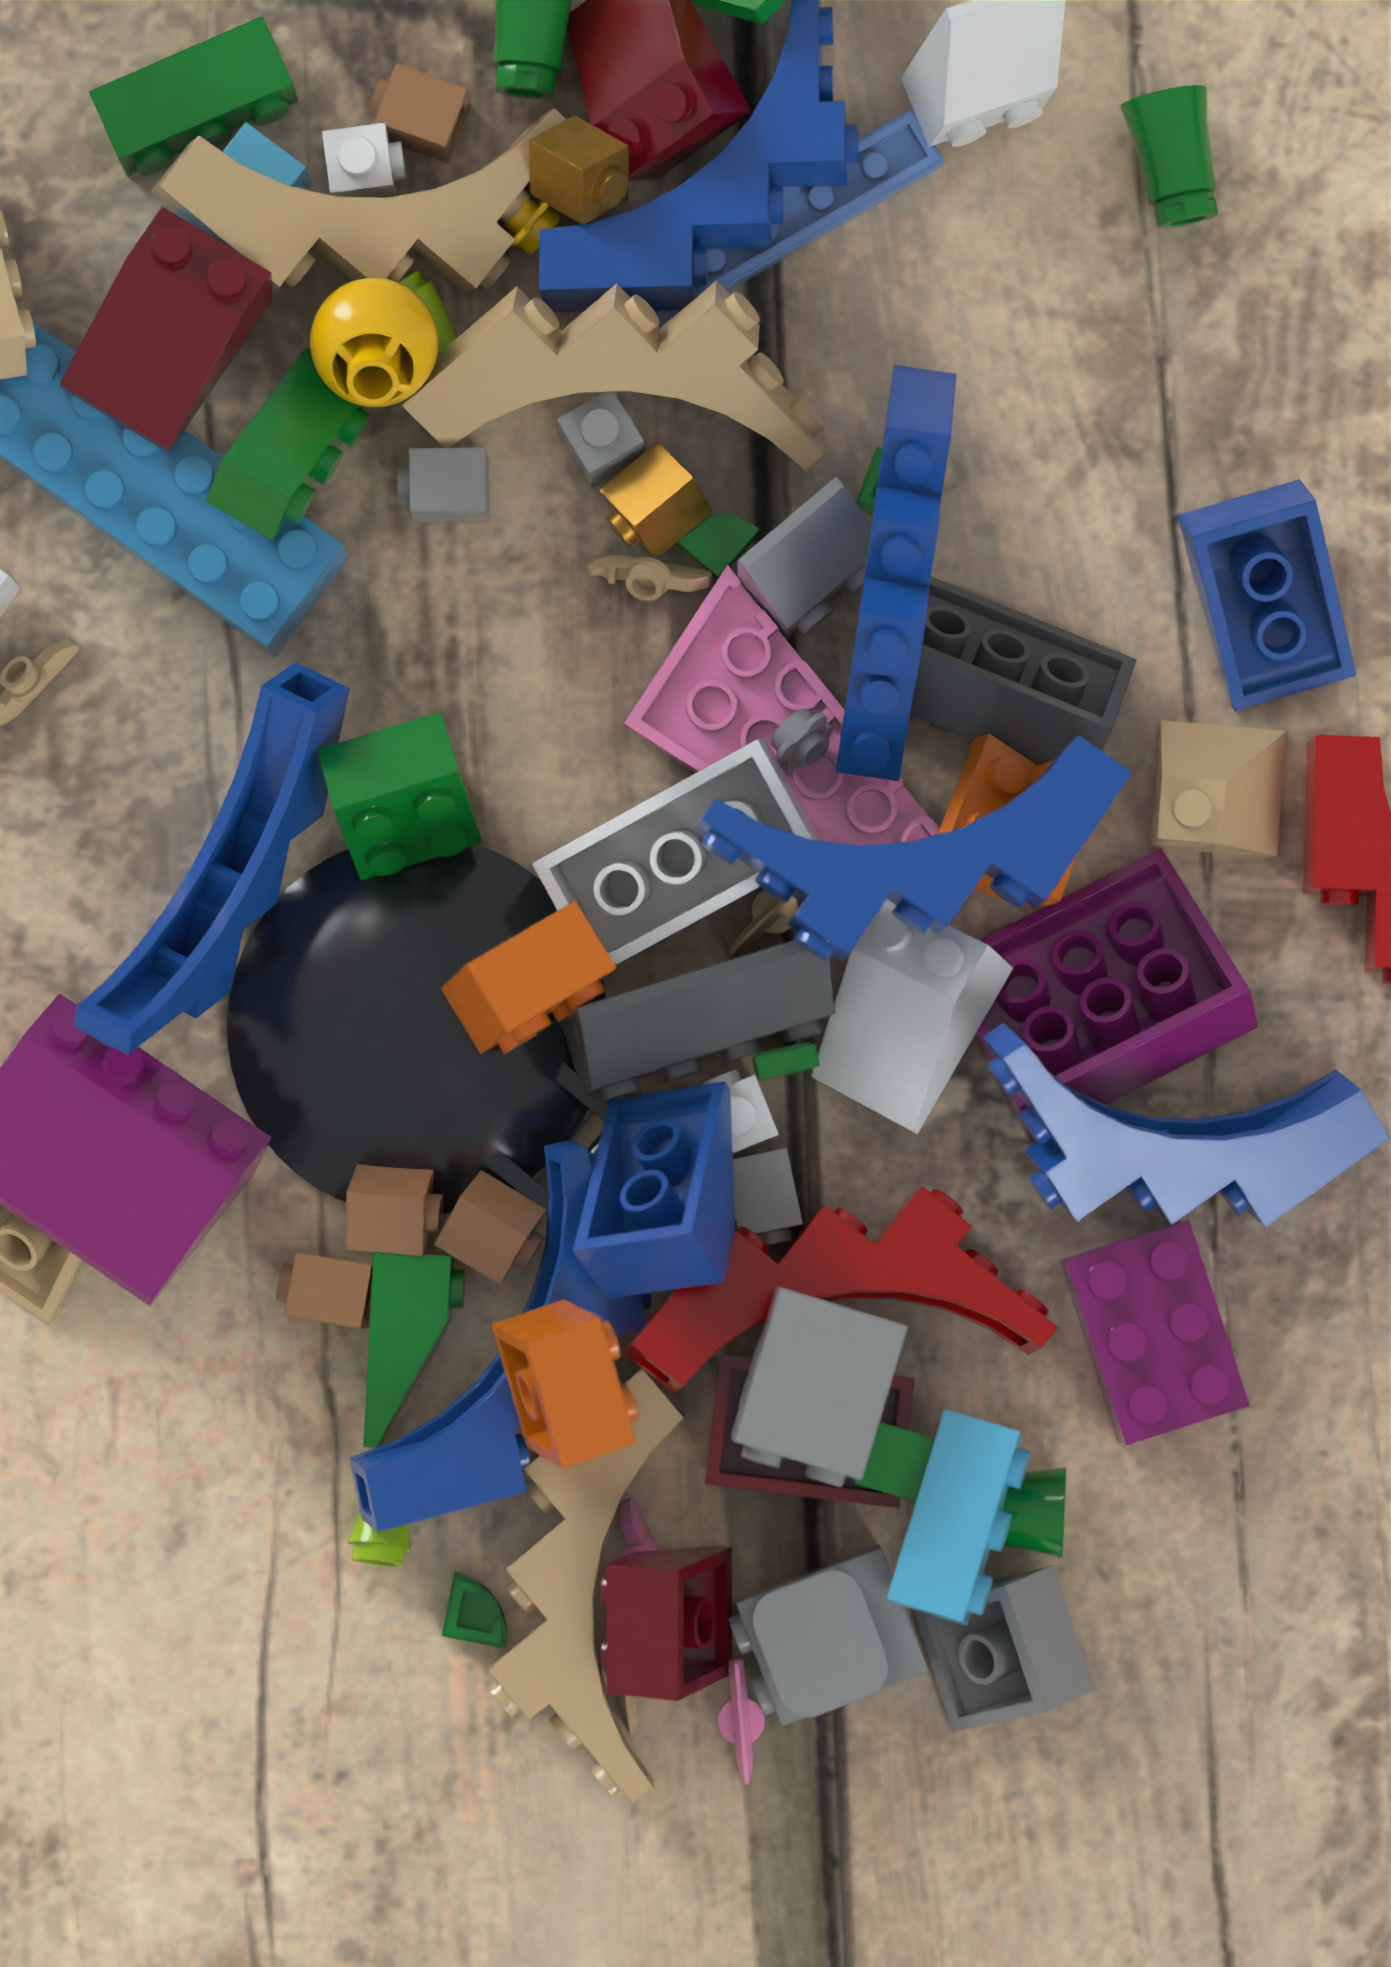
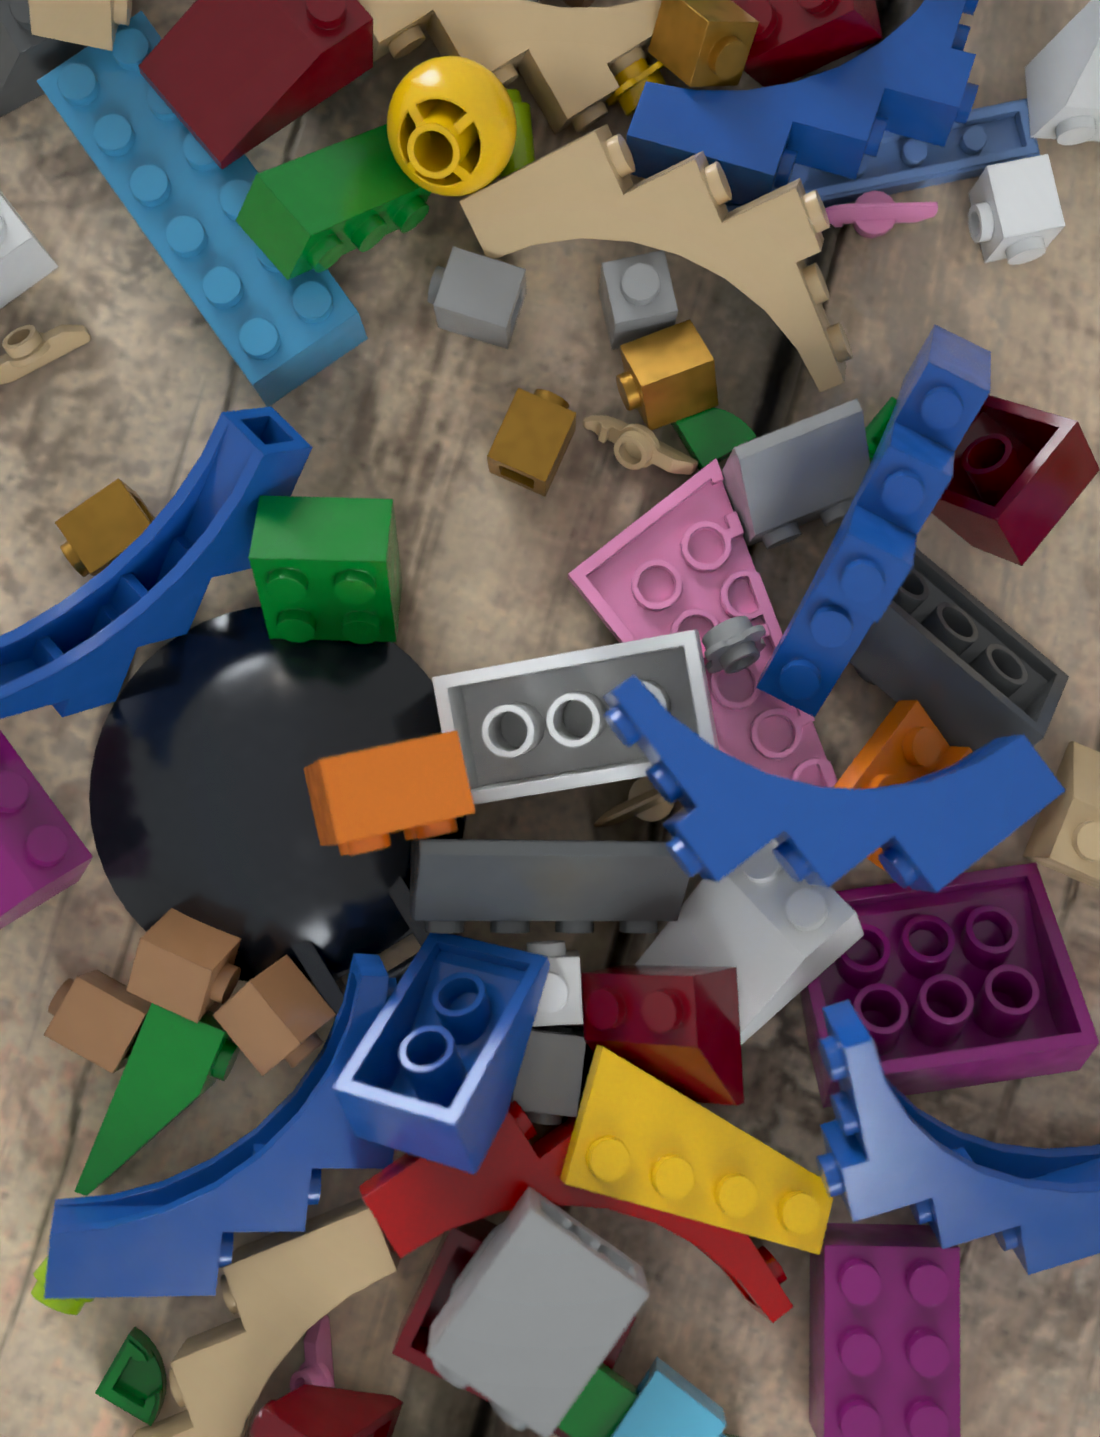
camera: 15 degrees right, 0 degrees up
(171, 831) = (103, 527): none -> pearl gold brick
(546, 605) = (532, 440): none -> pearl gold brick
(566, 1383) = (282, 1223): orange brick -> none
(785, 1061) = (614, 950): green tile -> none
(803, 270) = (877, 213): none -> bright pink piece
(858, 1117) = (670, 1024): none -> dark red slope
(902, 1221) = (677, 1157): none -> yellow wing
(935, 227) = (1015, 210): none -> white brick
(1011, 489) = (1014, 478): none -> dark red slope

